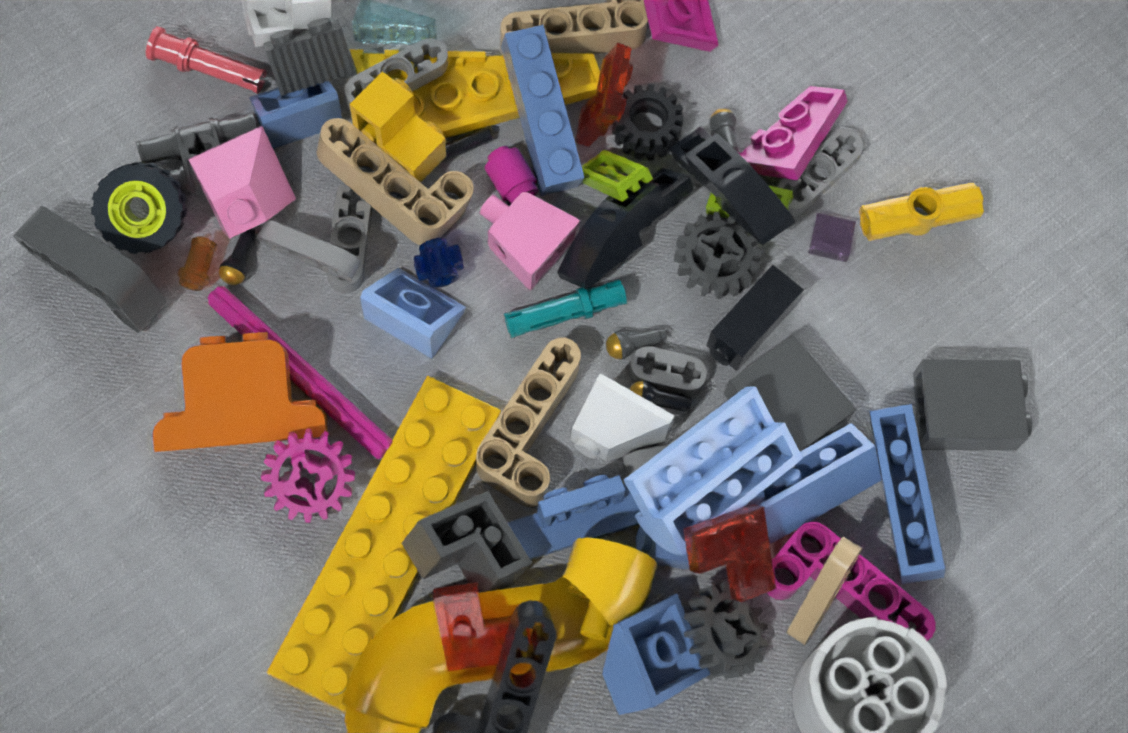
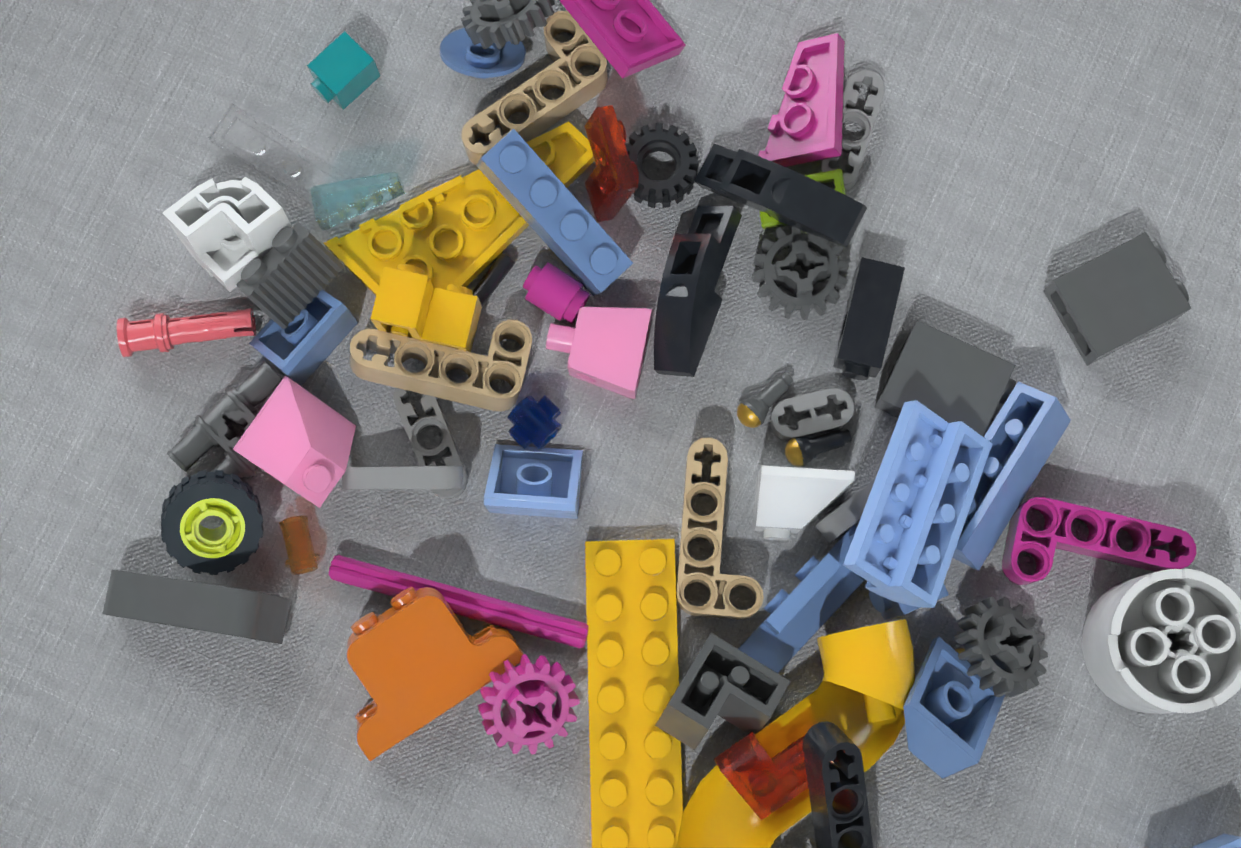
camera: 15 degrees left, 10 degrees up
(234, 268) = (336, 531): black piece -> none
(402, 60) = (414, 227): light grey beam -> none
(566, 308) = (681, 403): teal pin -> none
(608, 180) = (679, 248): lime tile -> none
(724, 123) = (734, 128): dark grey piece -> none
(741, 544) = (976, 566): clear red plate -> none
(824, 590) = (1077, 562): tan beam -> none
(831, 237) = (898, 192): clear purple tile -> none
(900, 217) = (990, 106): yellow piece -> none
(907, 494) = (1104, 424): medium blue brick -> none

